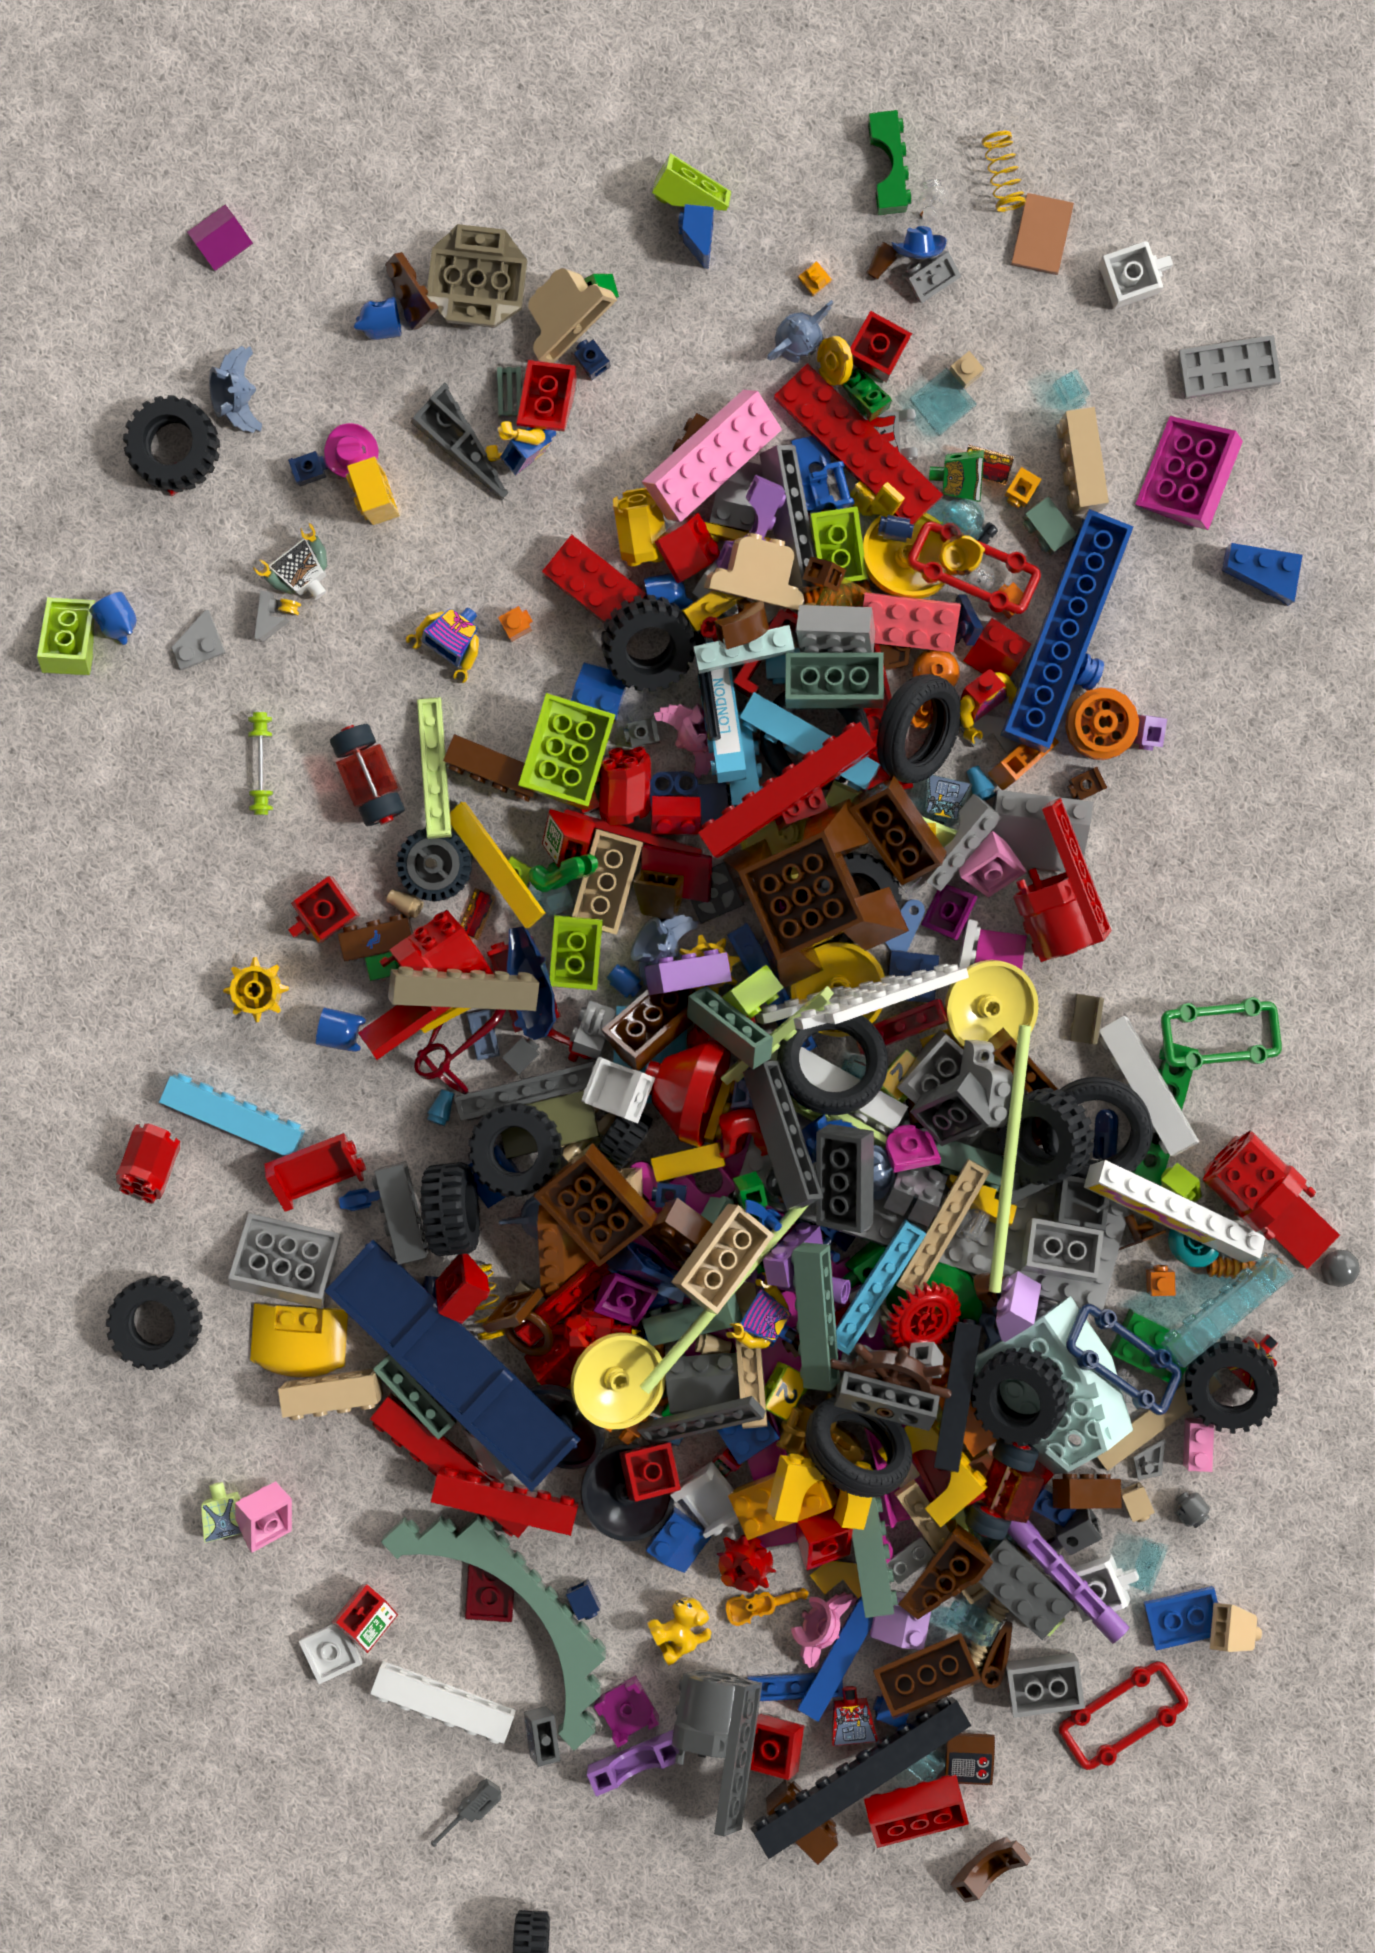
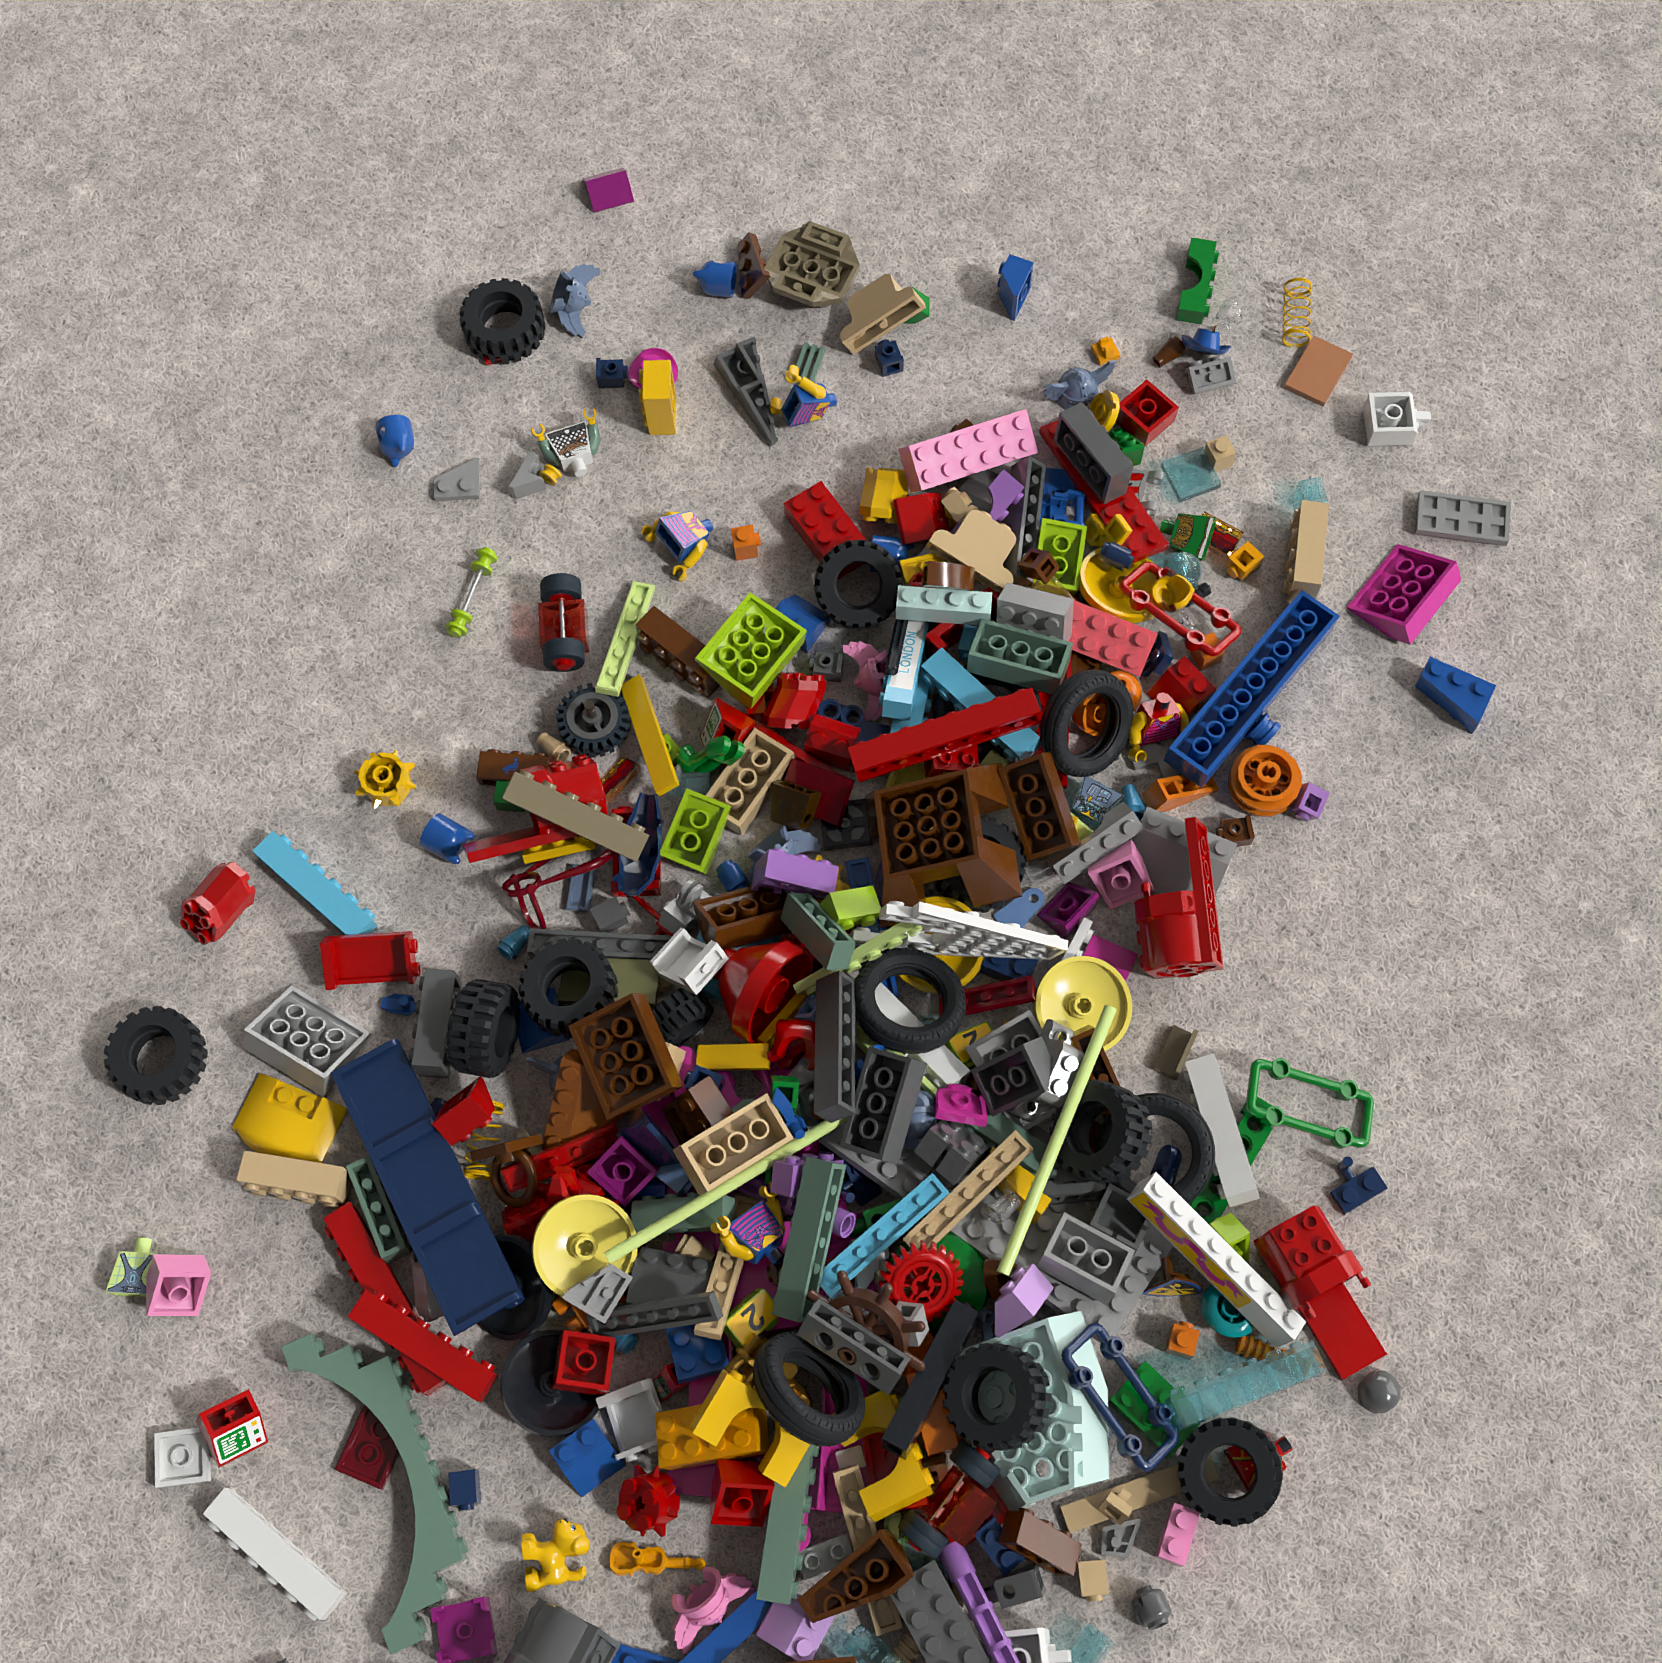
camera: 20 degrees right, 20 degrees down
(66, 637) = (346, 445): lime slope -> none
(323, 910) = (474, 729): red hinge -> none
(542, 1736) = (363, 1627): dark grey brick -> none
(547, 395) = (840, 366): red slope -> none
(645, 1415) = (599, 1292): none -> light grey wing
(683, 184) = (1007, 240): lime slope -> none
(722, 524) = (958, 504): none -> tan brick
(834, 1572) = (738, 1550): yellow tile -> none
(840, 420) = (1093, 453): none -> dark grey brick
(1048, 526) = (1259, 599): sand green brick -> none
(1142, 1439) = (1116, 1506): none -> tan tile
(1280, 1094) = (1356, 1189): none -> dark blue plate

